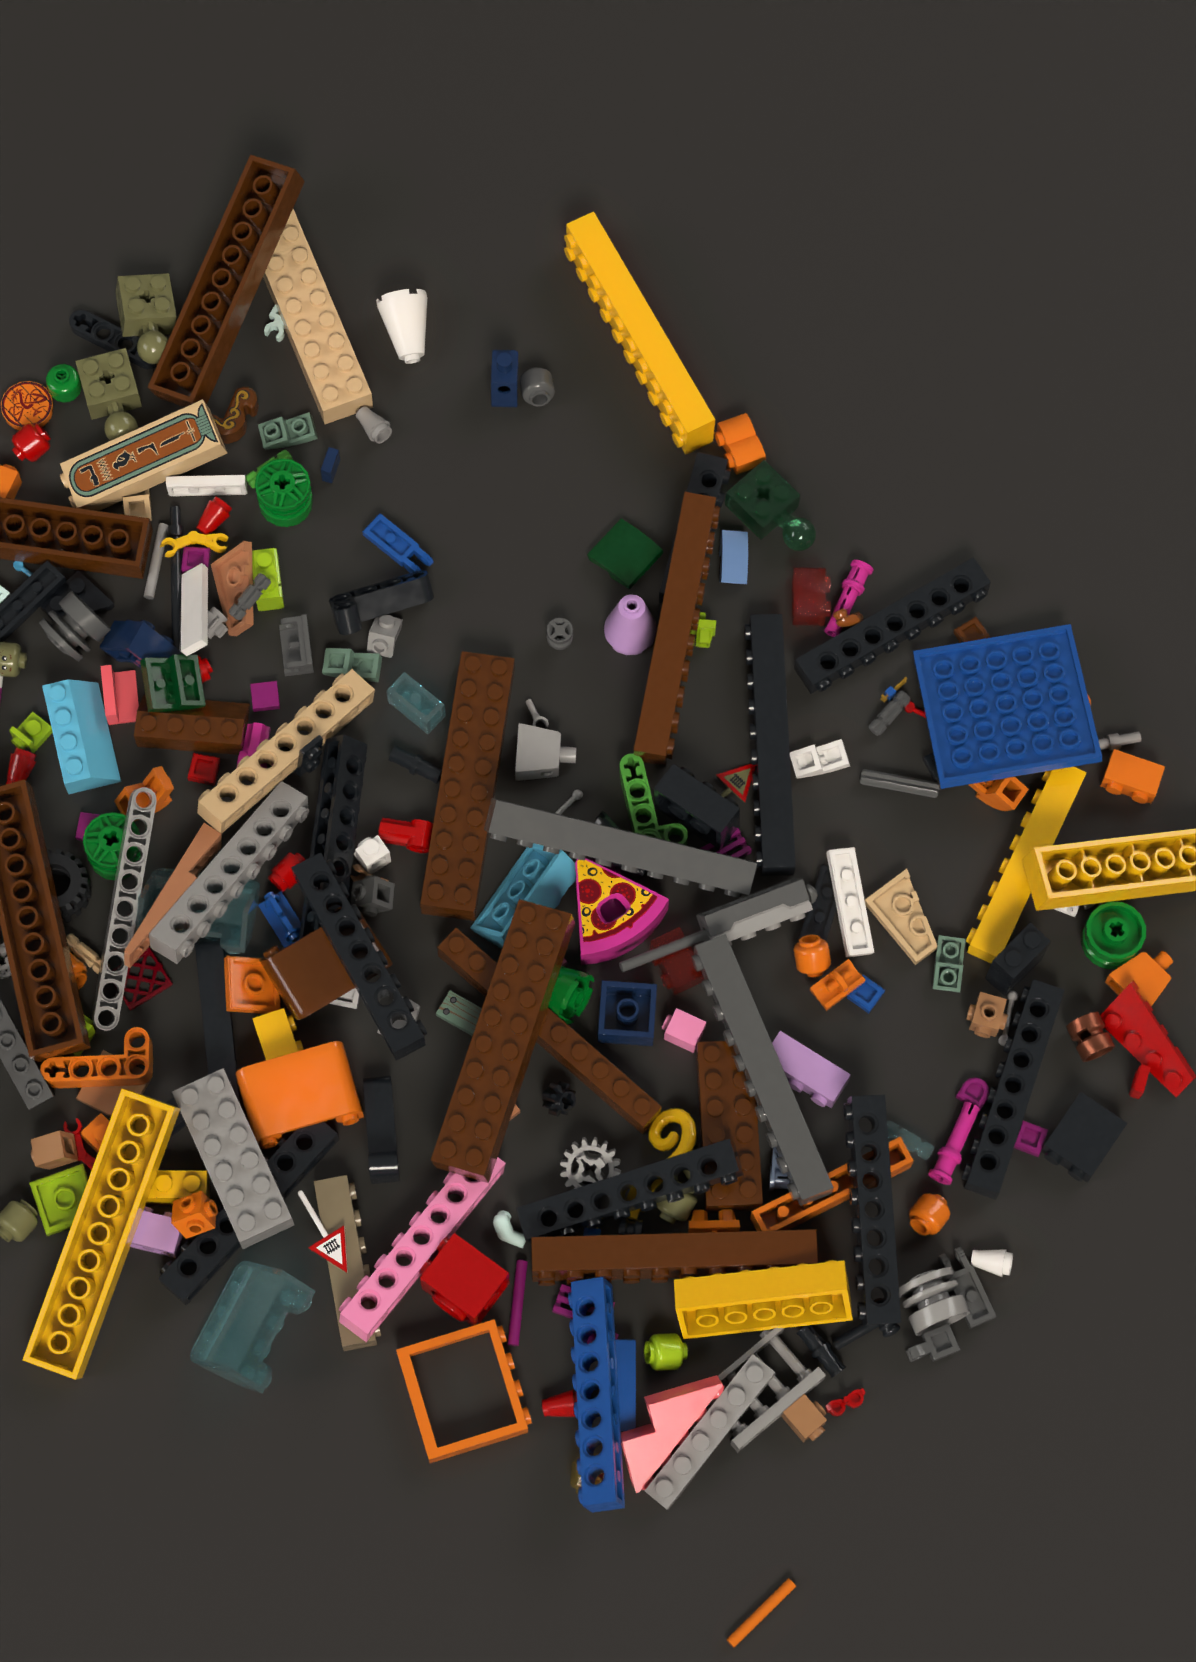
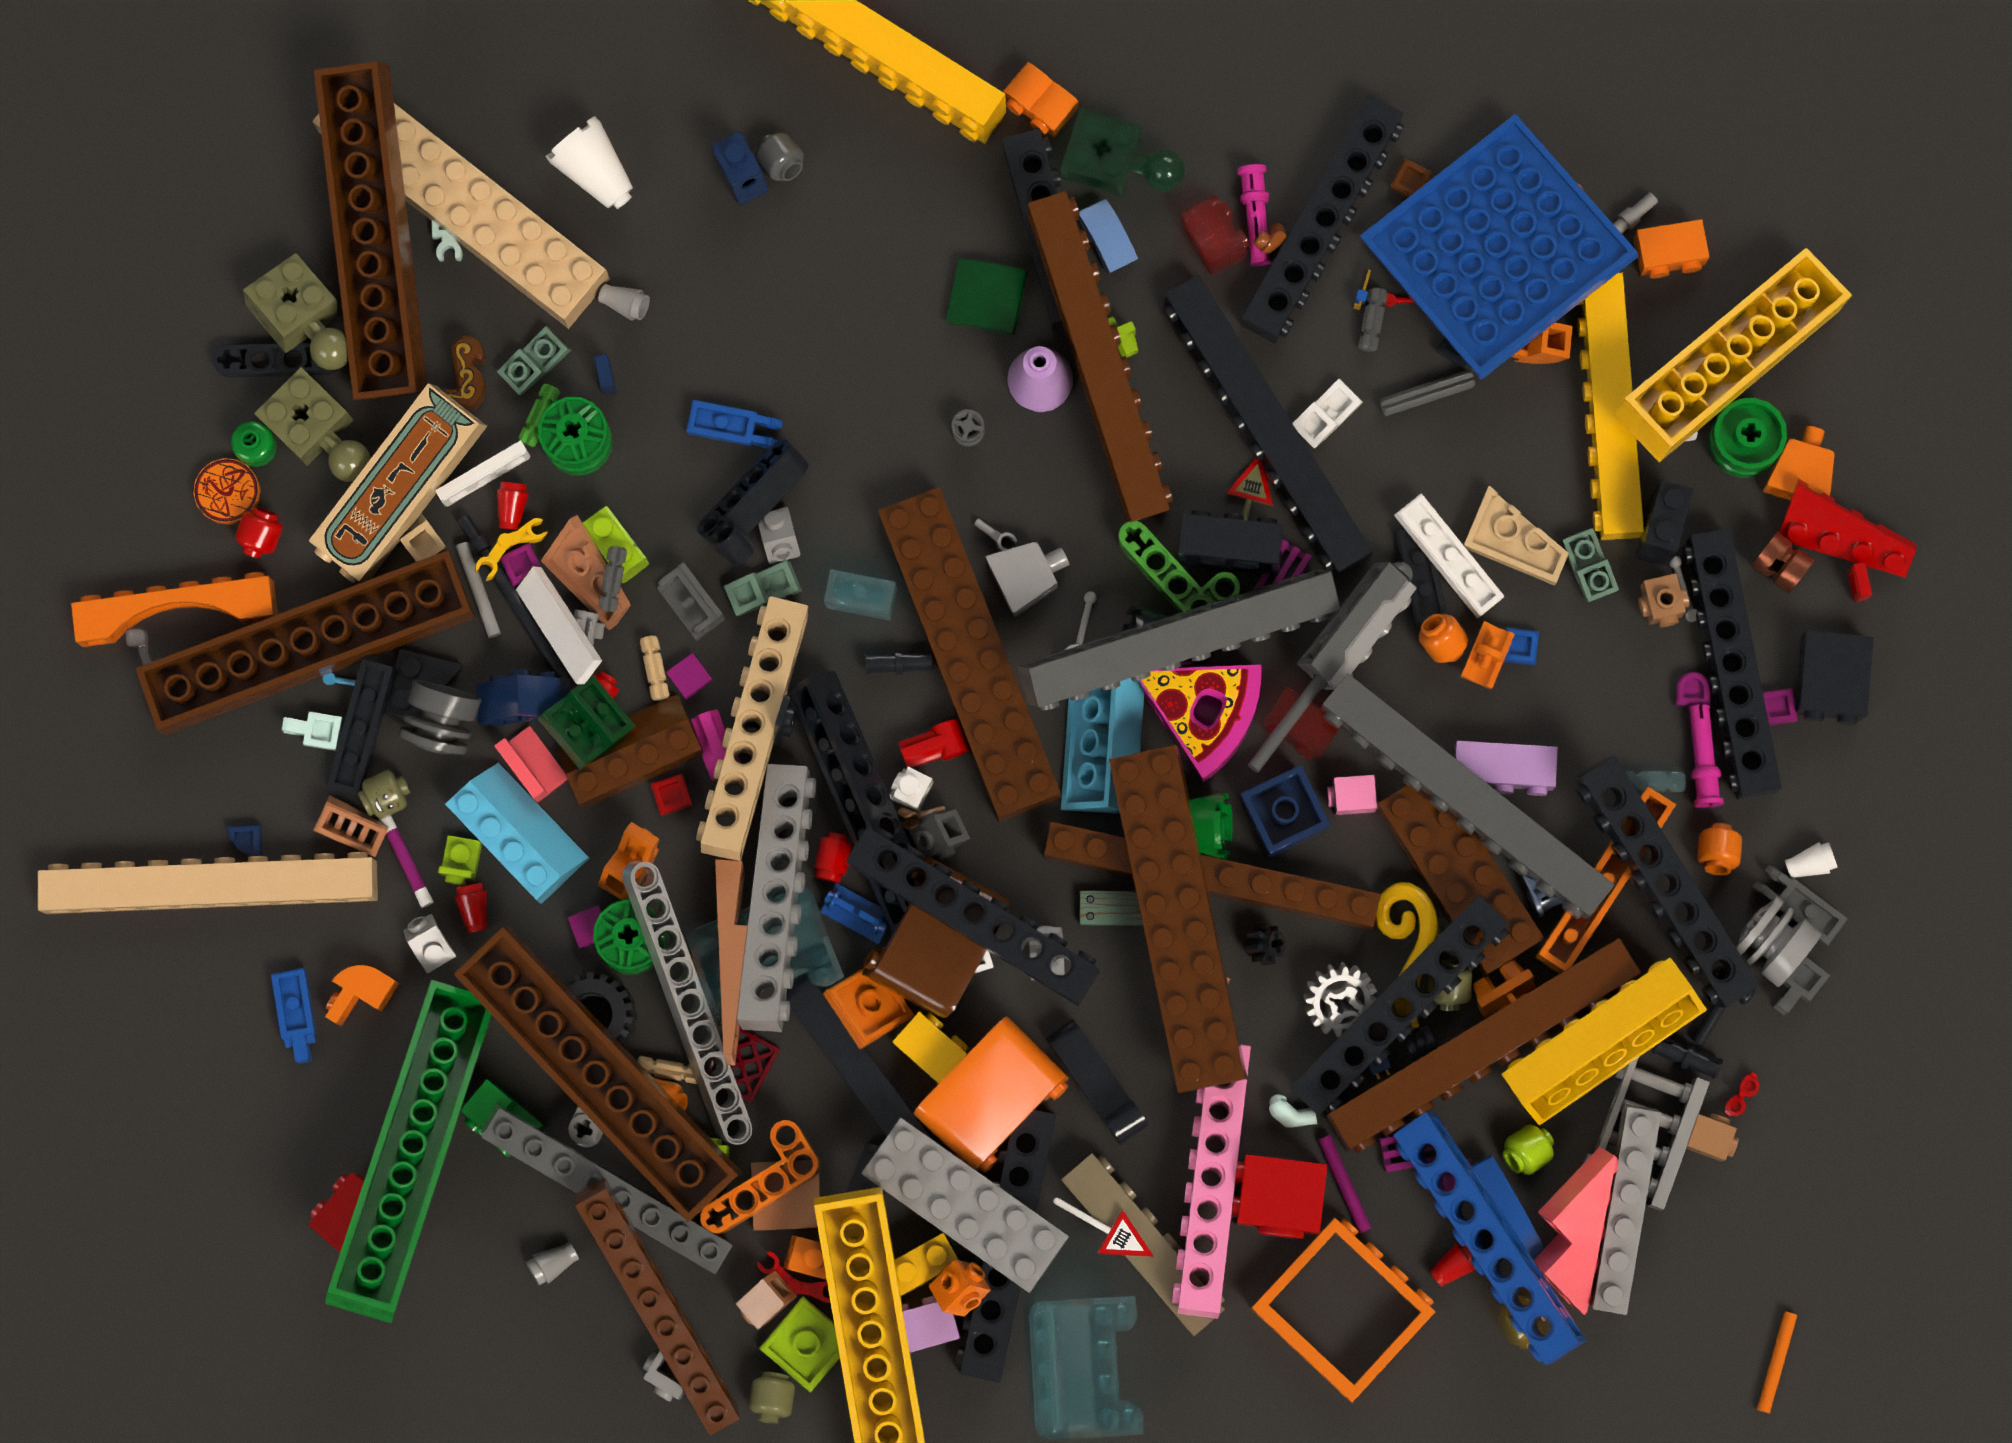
camera: 20 degrees left, 10 degrees up
(244, 677) = (654, 668): none -> tan axle

